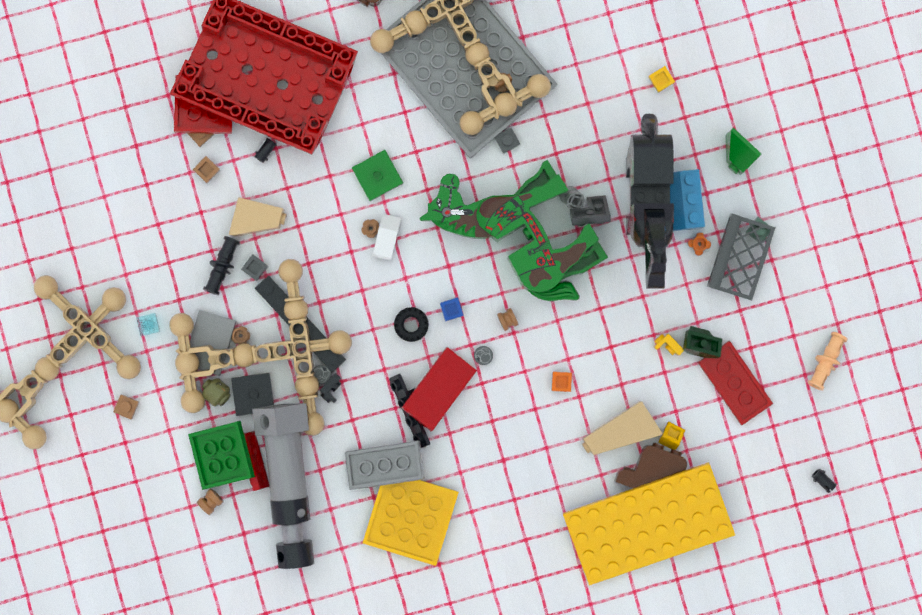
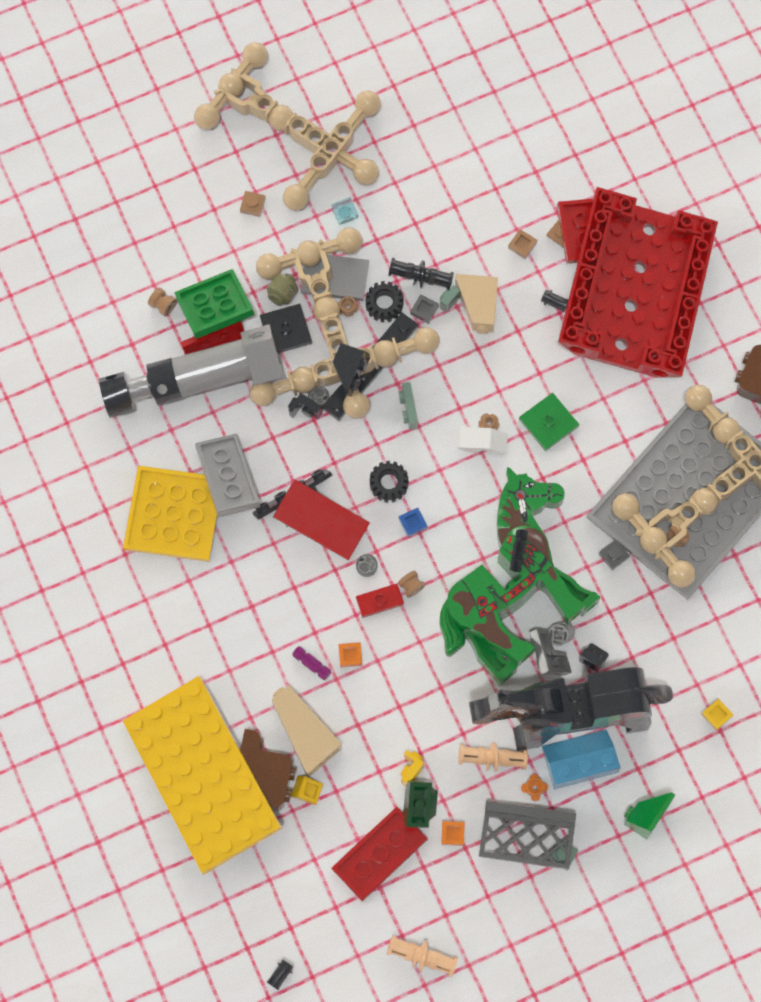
camera: 85 degrees right, 15 degrees down
(230, 302) = (387, 313): none -> black tyre
(248, 244) = (449, 298): none -> sand green plate
(307, 344) = (349, 364): none -> black slope
(337, 296) = (406, 397): none -> sand green plate
(502, 222) = (518, 550): none -> black axle
(516, 349) = (379, 600): none -> red plate
(563, 415) = (311, 663): none -> magenta axle
(596, 173) = (593, 657): none -> black bracket
(671, 273) = (492, 757): none -> light nougat piece
(728, 319) = (452, 833): none -> orange plate

